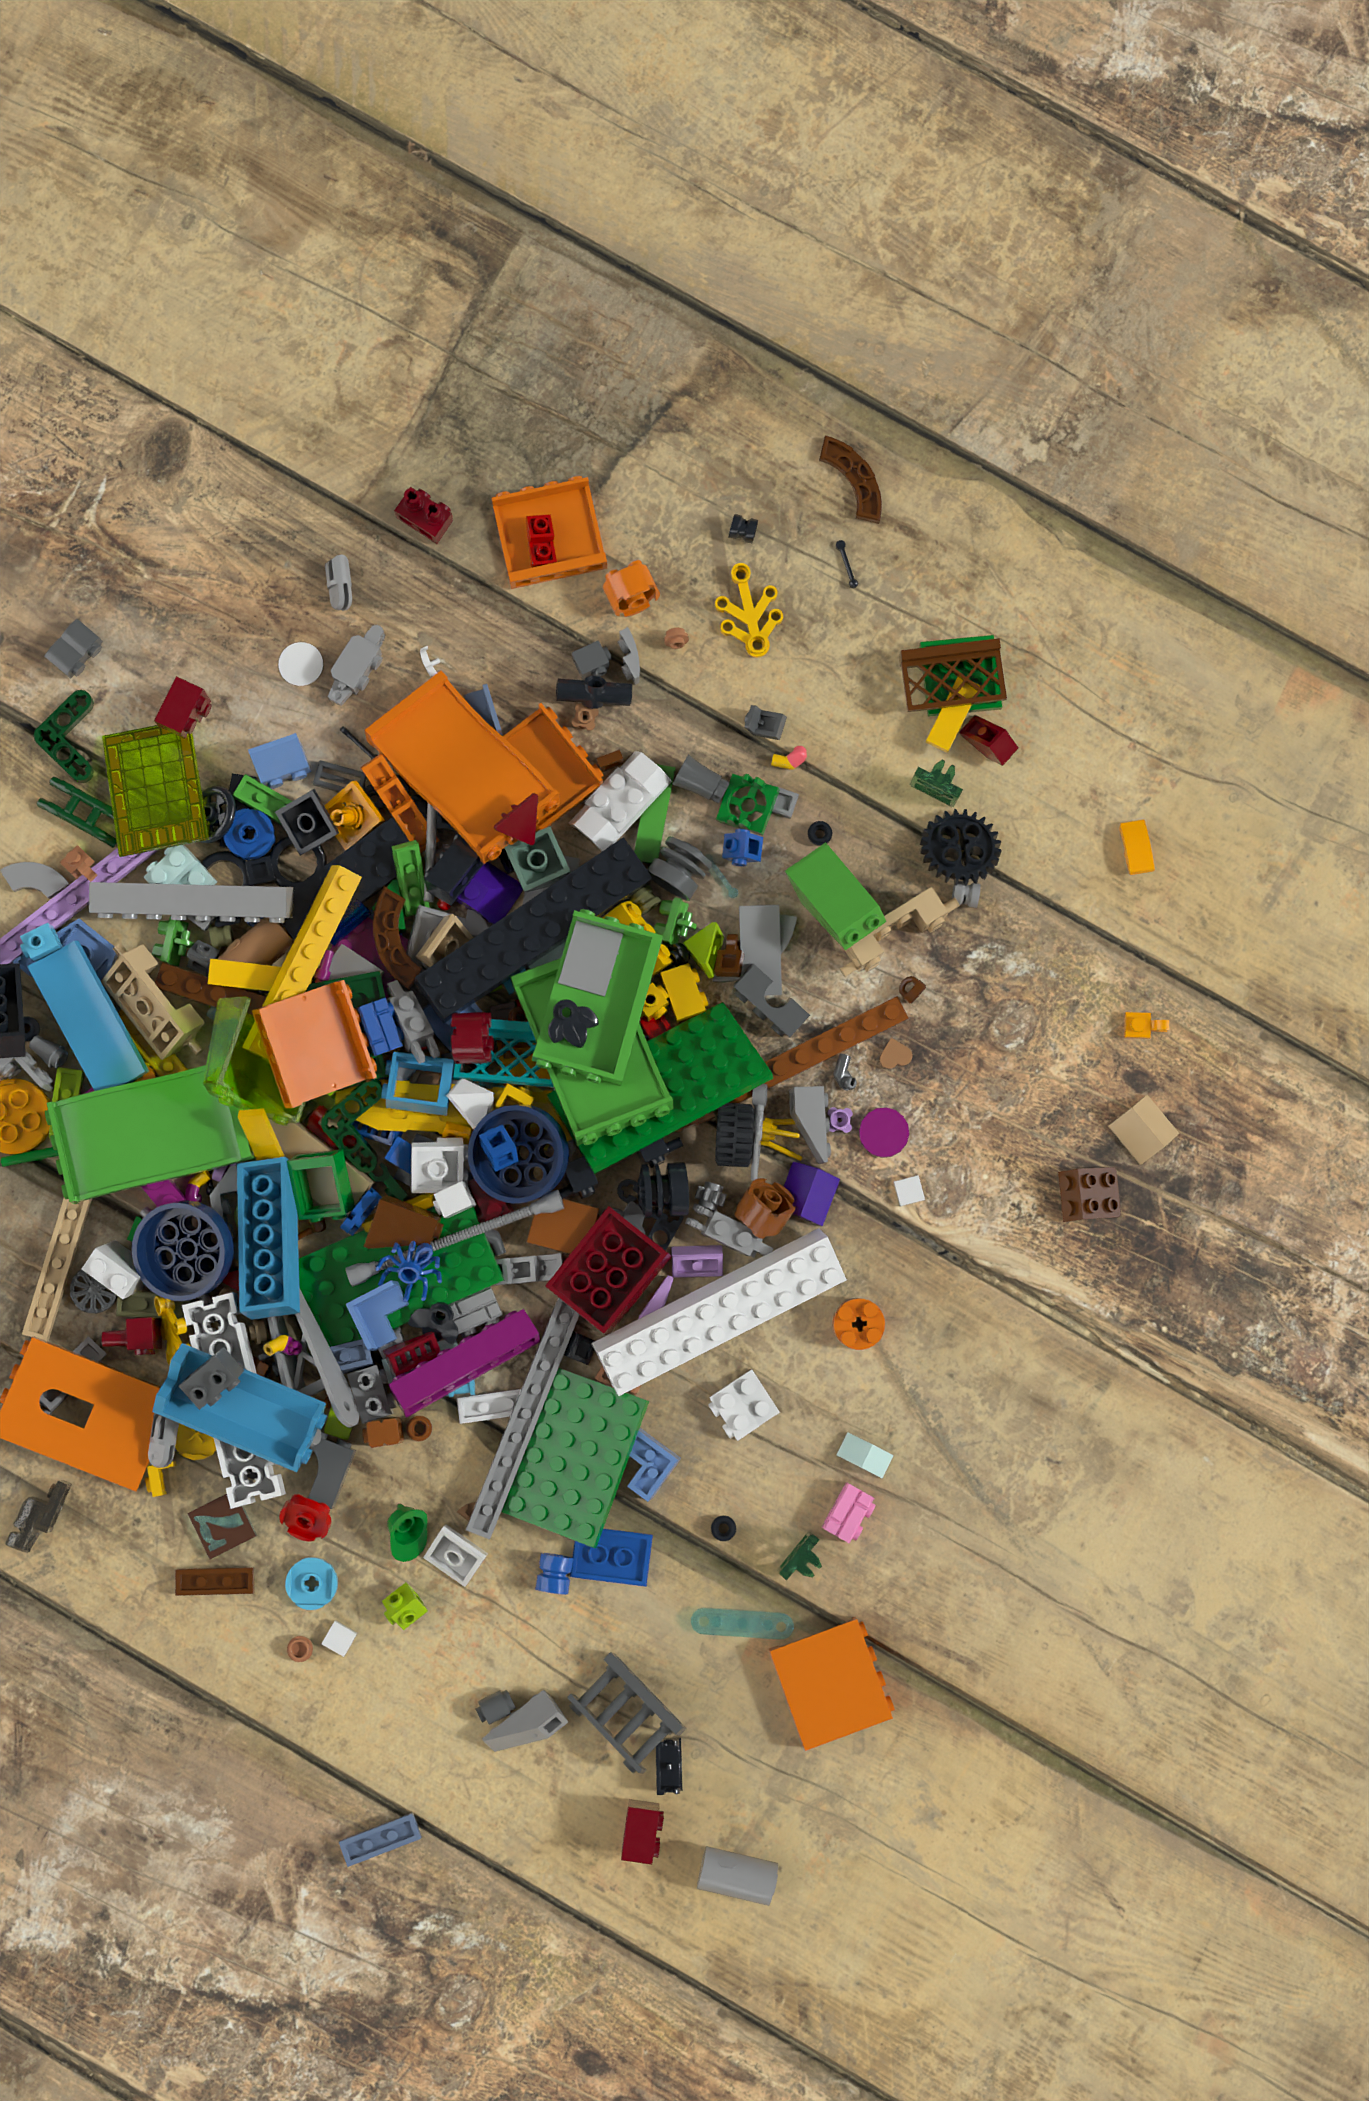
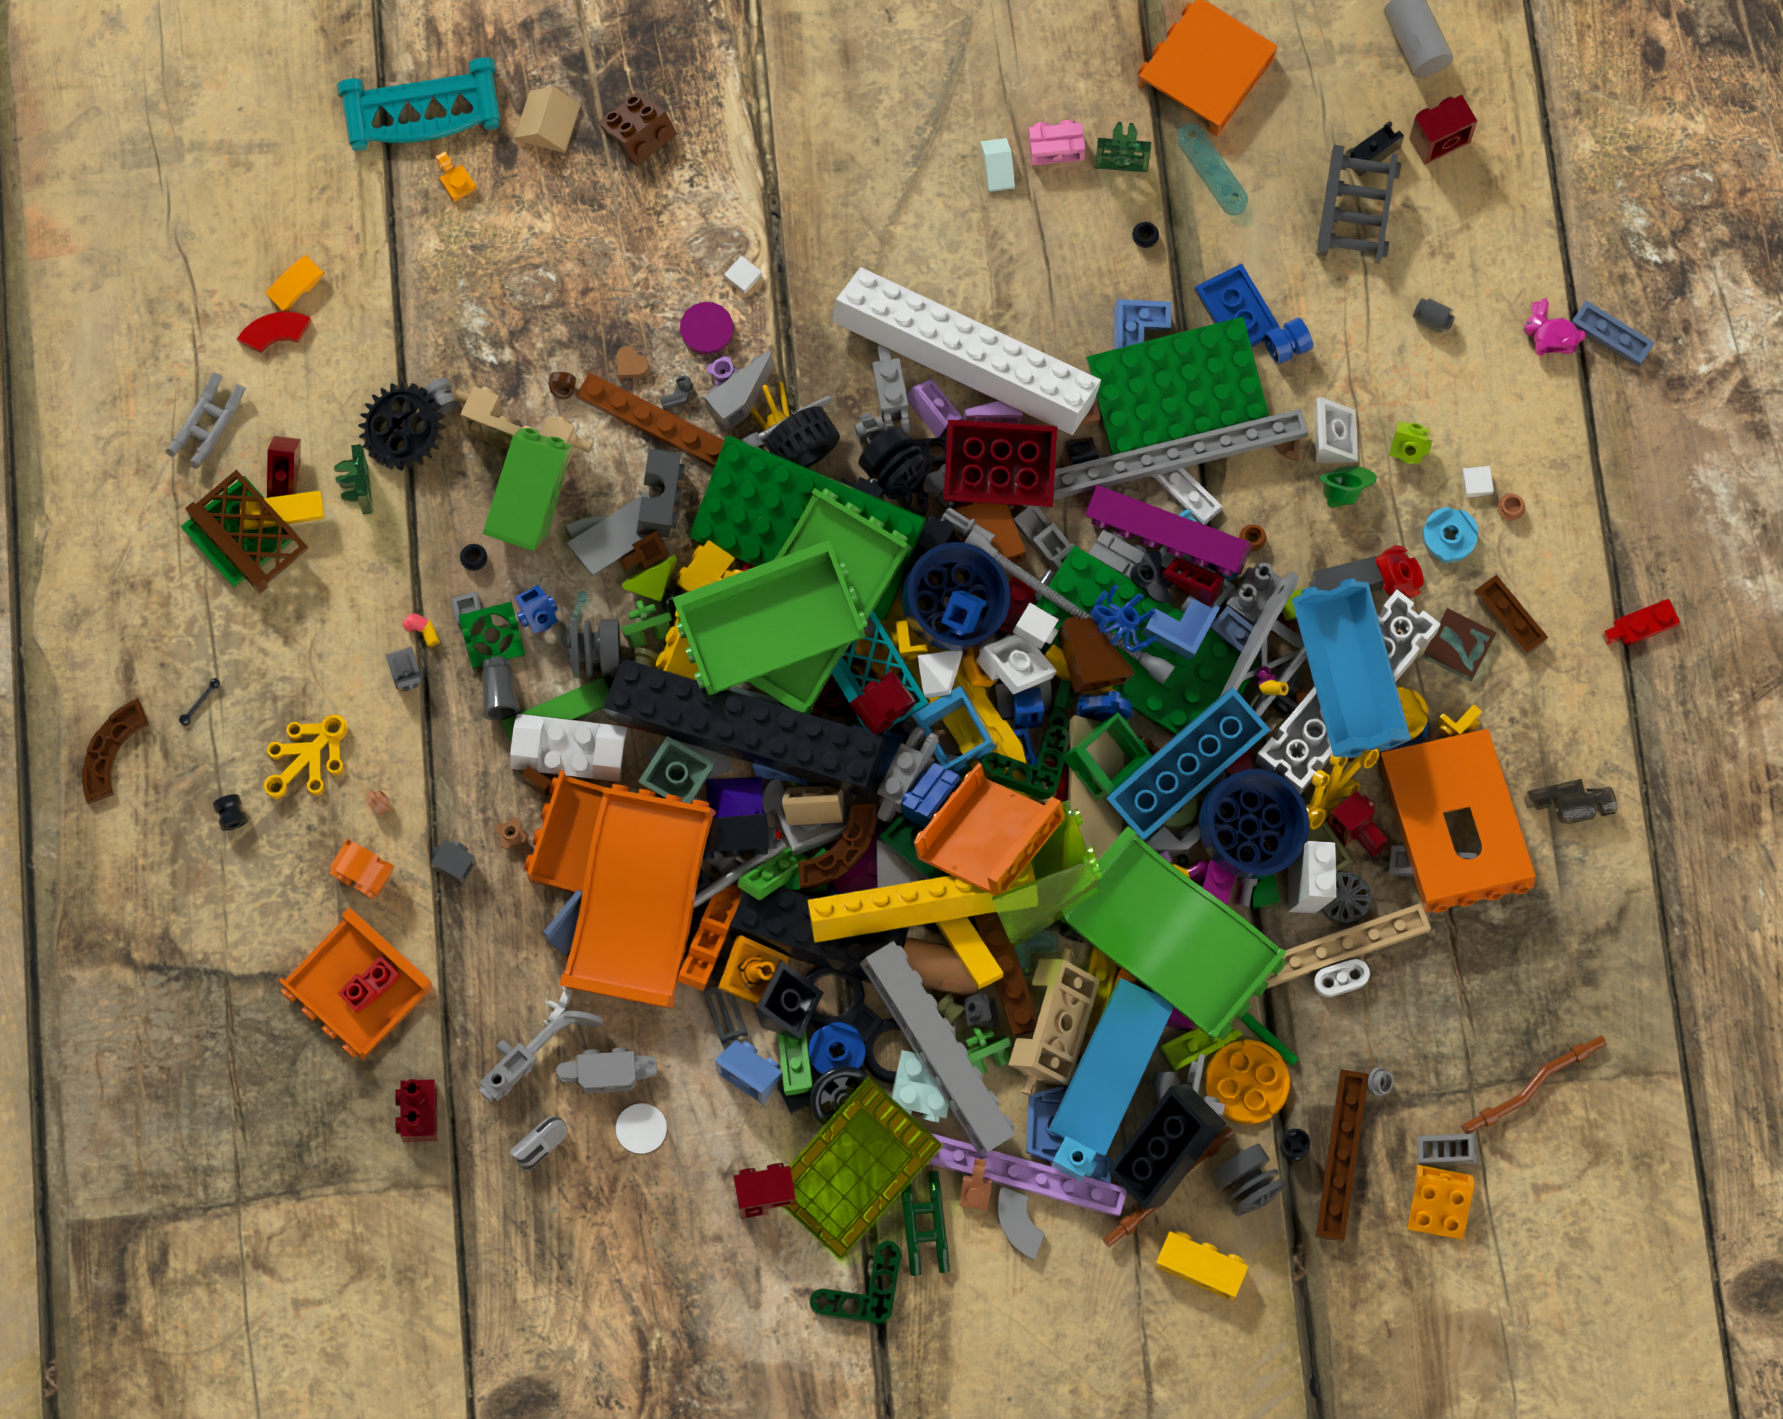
camera: 120 degrees left, 10 degrees down
(34, 1240) = (1341, 979): none -> white plate
(74, 648) = (777, 1343): dark grey brick -> none
(135, 1680) = (1643, 624): none -> red hinge
(162, 1441) = (1428, 732): light grey arm -> none
(211, 1378) = (1344, 704): dark grey brick -> none
(260, 1134) = (1104, 830): yellow tile -> none
(344, 730) = (683, 995): black hinge -> none
(383, 1432) = (1279, 553): dark orange brick -> none
(408, 610) = (521, 1059): none -> light grey piece
(414, 1789) = (1553, 334): none -> dark pink animal
(521, 821) = (654, 795): dark red piece -> none
(529, 1724) = (1422, 274): light grey slope -> none
(571, 1027) = (809, 619): black plate -> none
(574, 1208) = (966, 526): none -> light grey axle
(590, 958) = (737, 651): light grey window -> none
(593, 692) = (482, 837): black piece -> none
(631, 661) = (429, 824): light grey slope -> none
(743, 1405) = (1030, 287): white plate -> none
(765, 1208) = (847, 372): dark orange brick -> none
(811, 1192) = (808, 356): dark purple slope -> none
(870, 1332) = (901, 235): orange brick -> none
(1070, 695) = (204, 405): none -> light grey piece
(1110, 808) = (274, 328): none -> red tile
(1209, 1091) = (362, 106): none -> teal piece

